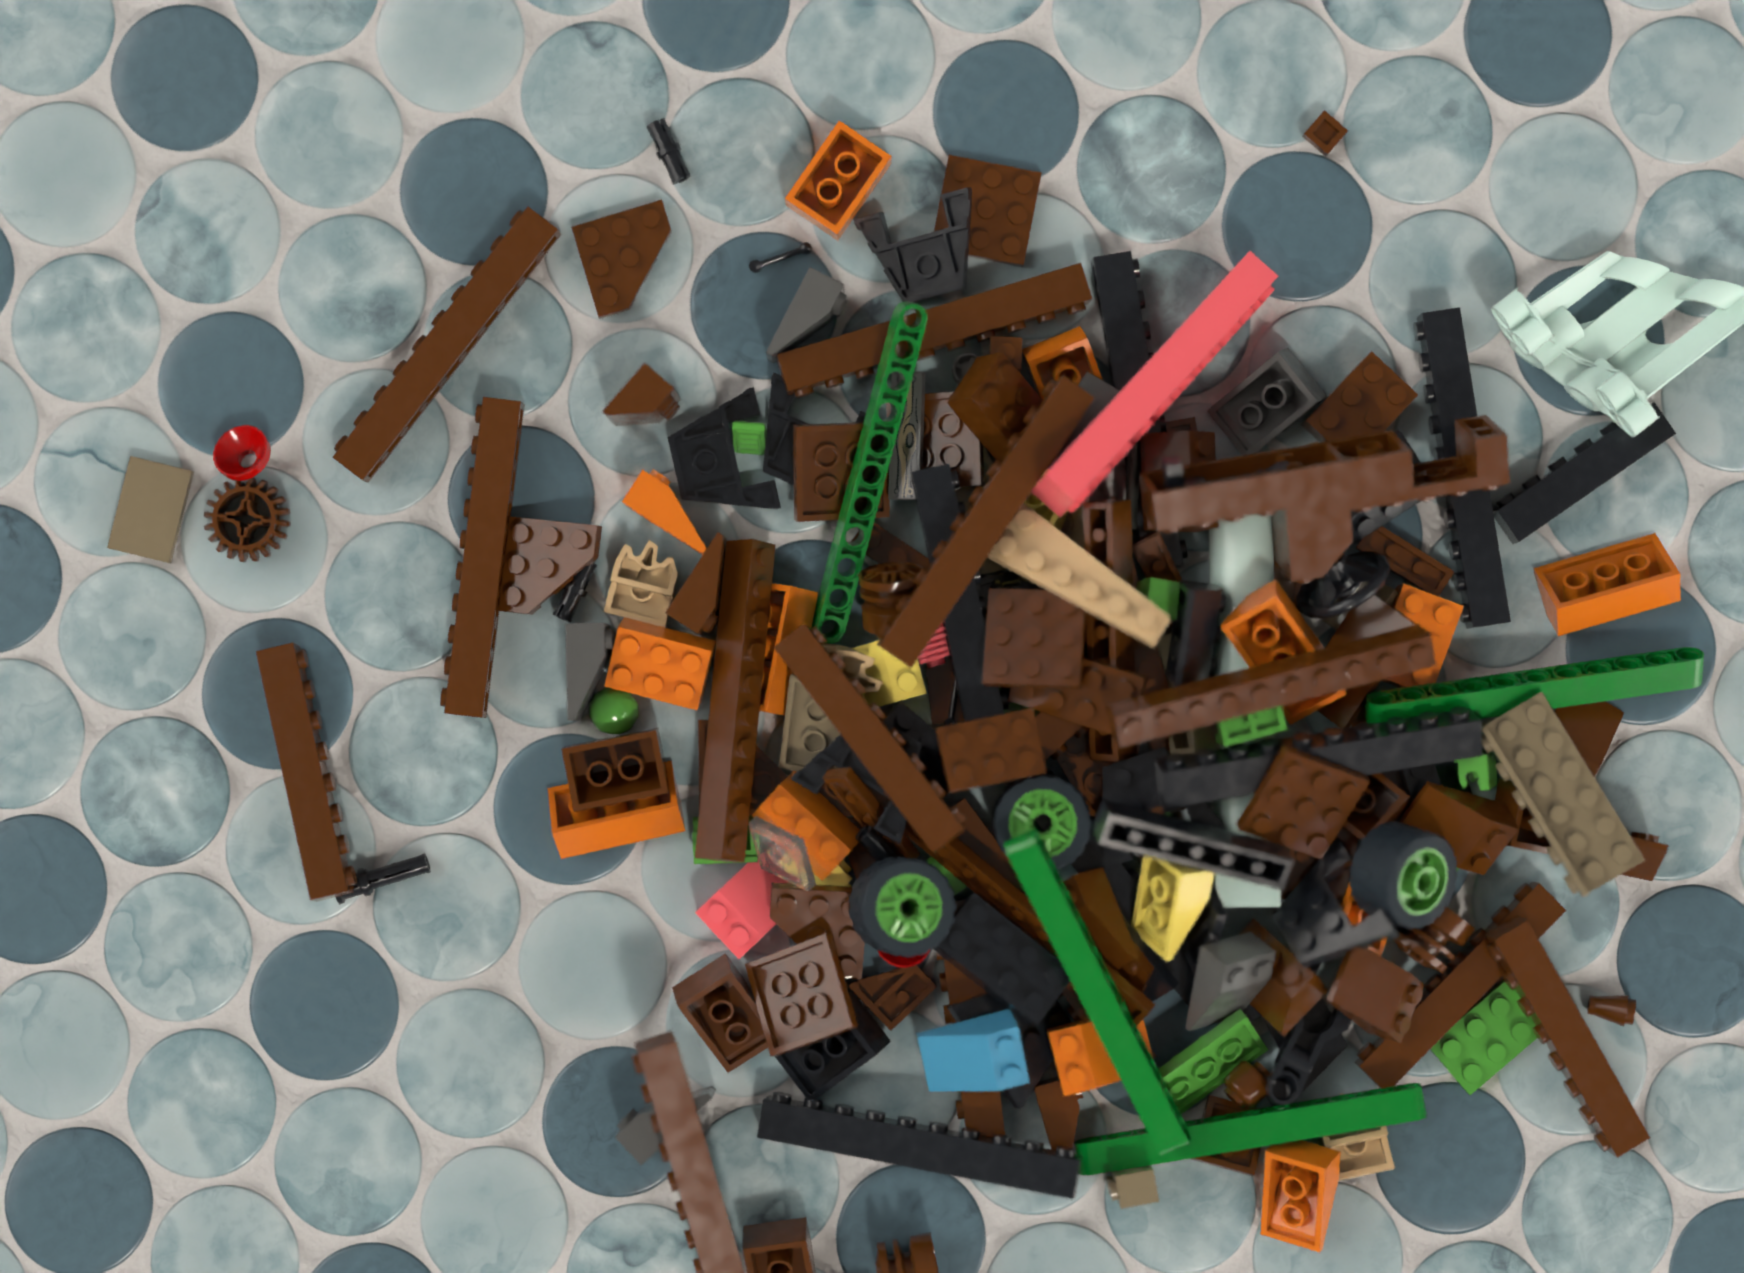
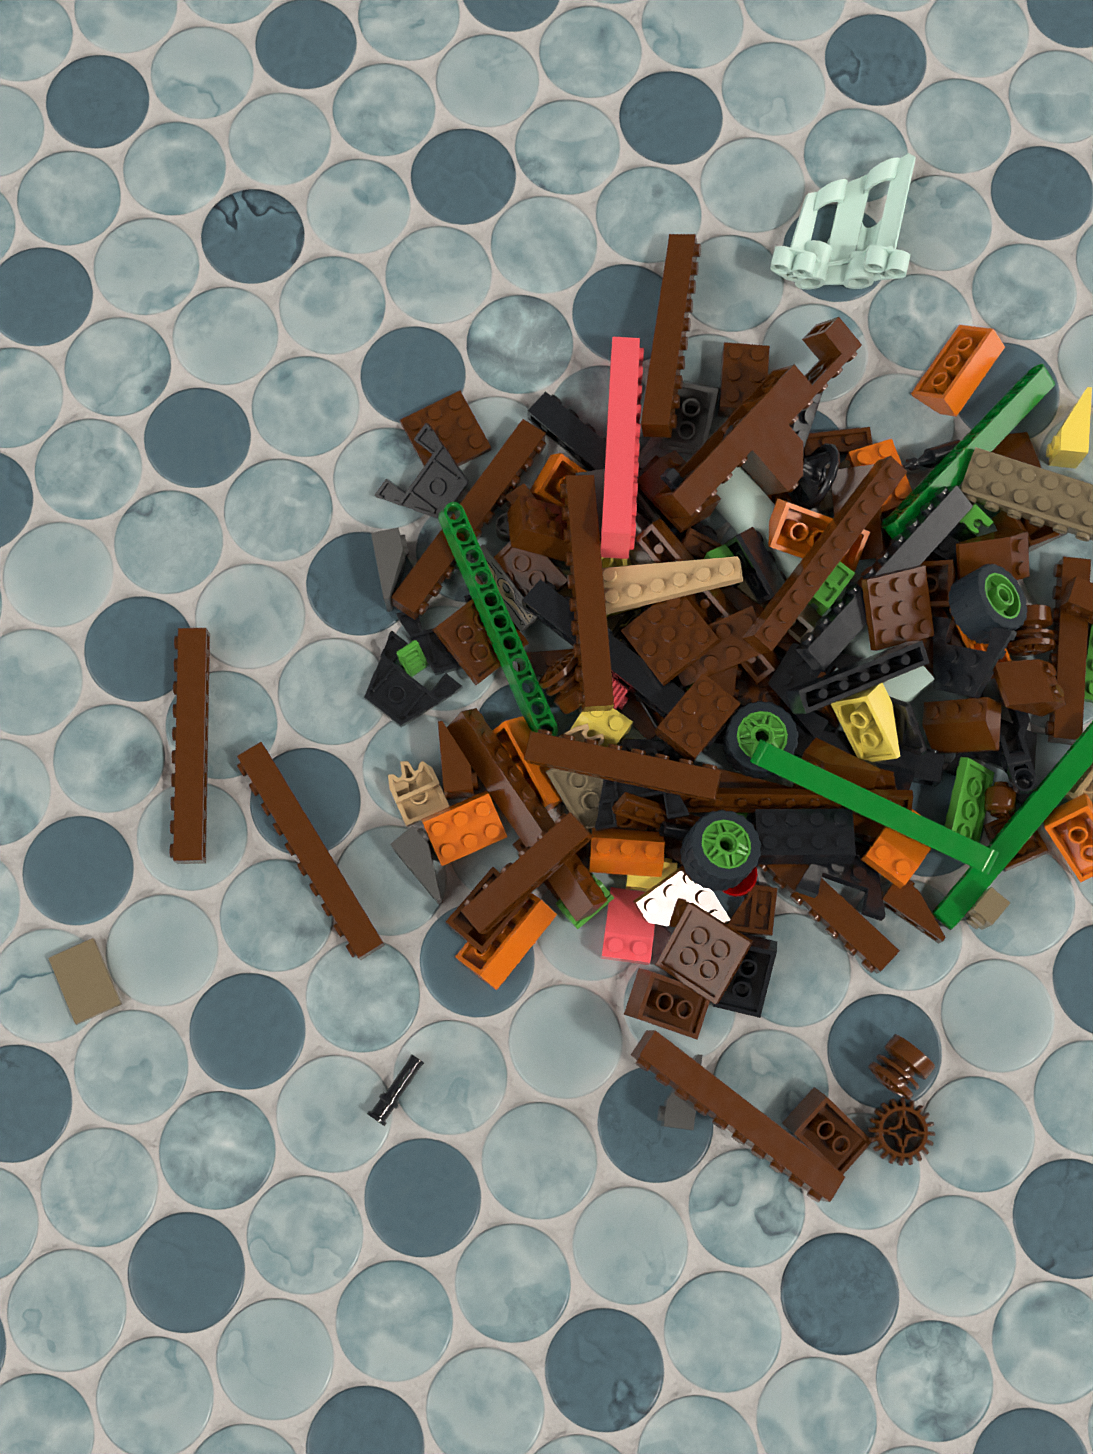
camera: 45 degrees left, 10 degrees down
(236, 445) = (109, 900): red piece -> none
(246, 533) = (140, 945): reddish brown gear -> none
(305, 771) = (301, 1061): reddish brown brick -> none
(543, 560) = (347, 824): reddish brown plate -> none
(574, 593) = (379, 827): black pin -> none
(613, 711) = (457, 879): bright green hair -> none
(621, 253) = (254, 617): reddish brown plate -> none
(643, 400) = (334, 682): reddish brown slope -> none
(658, 503) = (393, 737): orange slope -> none
(668, 151) = (236, 539): black pin -> none
(680, 769) = (526, 873): none -> reddish brown brick
(756, 266) = (338, 563): black hinge -> none
(782, 853) = (625, 877): clear tile -> none
(838, 180) = (348, 479): orange brick -> none
(920, 1146) = (846, 986): black brick -> none
(974, 1054) = (833, 904): dark azure slope -> none
(1228, 978) = (940, 742): dark grey slope -> none
(1317, 297) = (670, 336): none -> reddish brown brick
(1325, 133) = (600, 252): reddish brown plate -> none
(1469, 515) = (848, 388): black brick -> none
(1492, 659) = (931, 456): none -> black wheel
(1576, 477) = (891, 327): black brick -> none
(1662, 761) = (1072, 439): none -> light yellow slope

